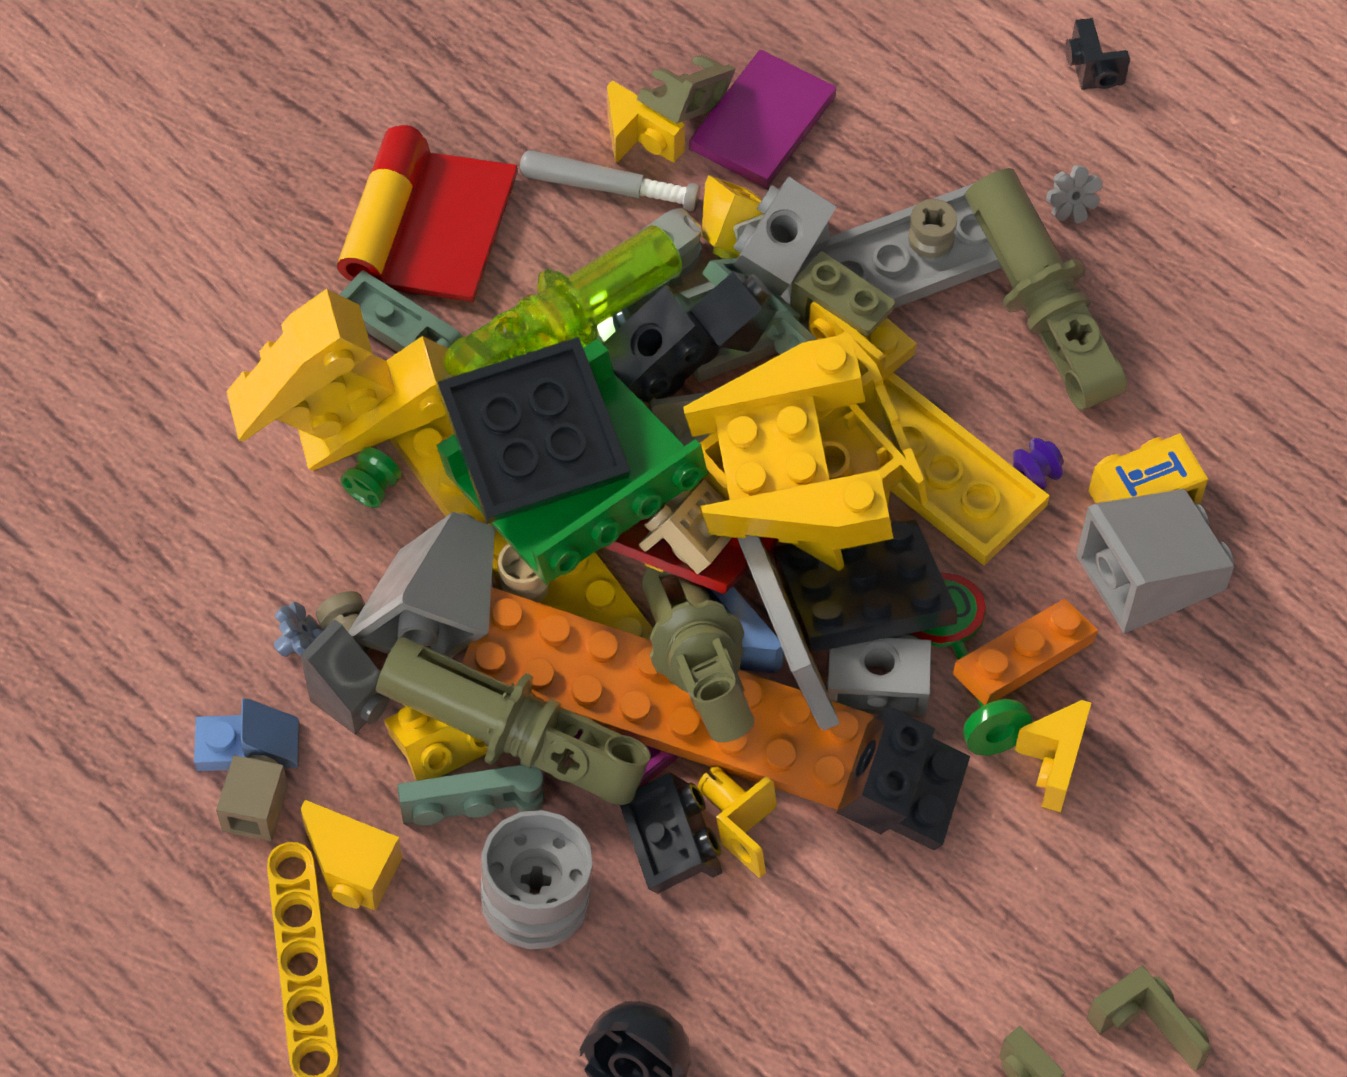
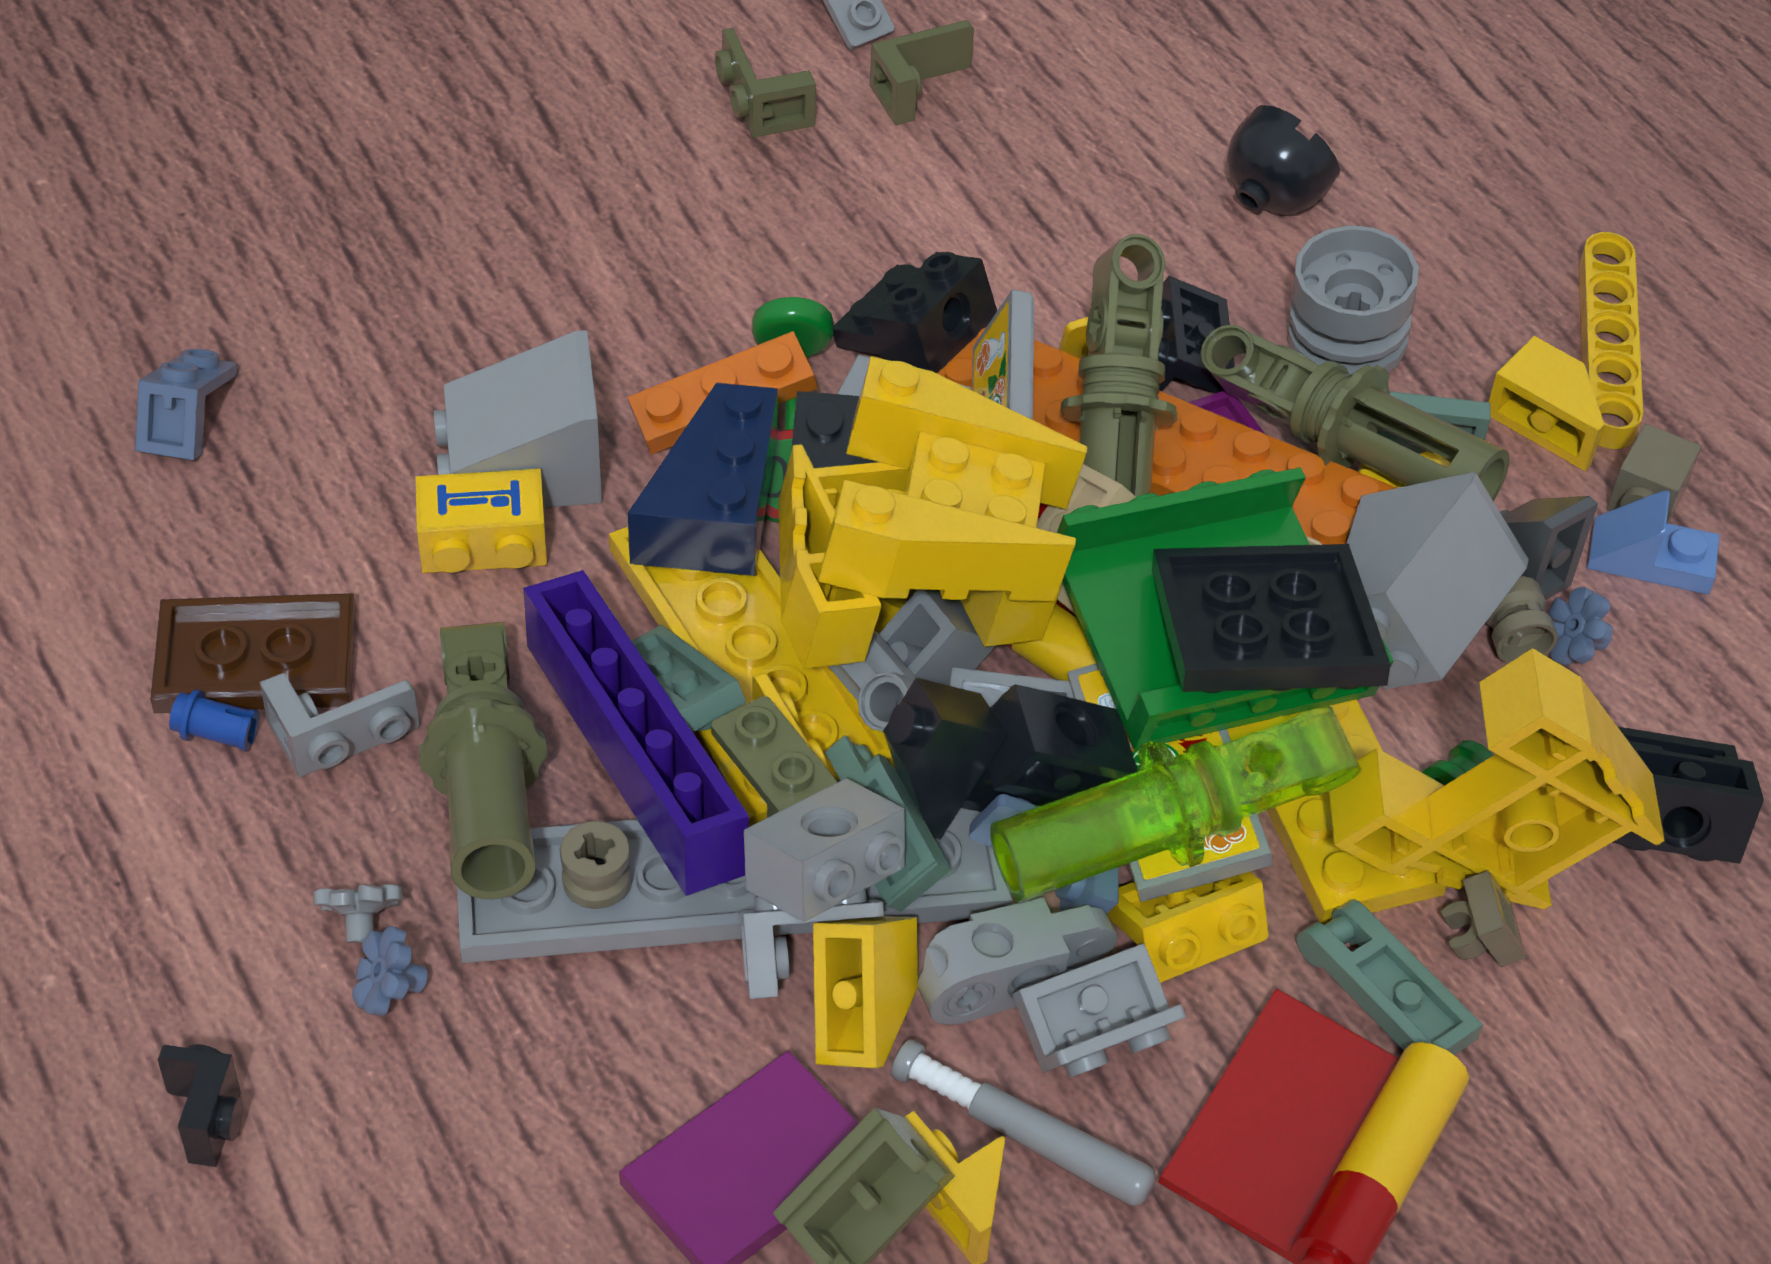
camera: 165 degrees left, 10 degrees down
(215, 506) = (1702, 795): none -> black brick
(576, 237) = (1095, 1009): none -> light grey bracket
(942, 370) = (689, 678): none -> sand green plate
(953, 317) = (636, 733): none -> dark purple brick
(981, 523) = (711, 488): none -> dark blue wedge
(1029, 155) = (386, 971): none -> sand blue plant
(1042, 461) = (607, 574): dark purple wheel -> none
(1055, 742) = (724, 306): yellow slope -> none
(1174, 286) = (329, 738): none -> light grey bracket
(1239, 288) = (213, 720): none -> blue pin
(1247, 355) = (240, 641): none -> reddish brown tile

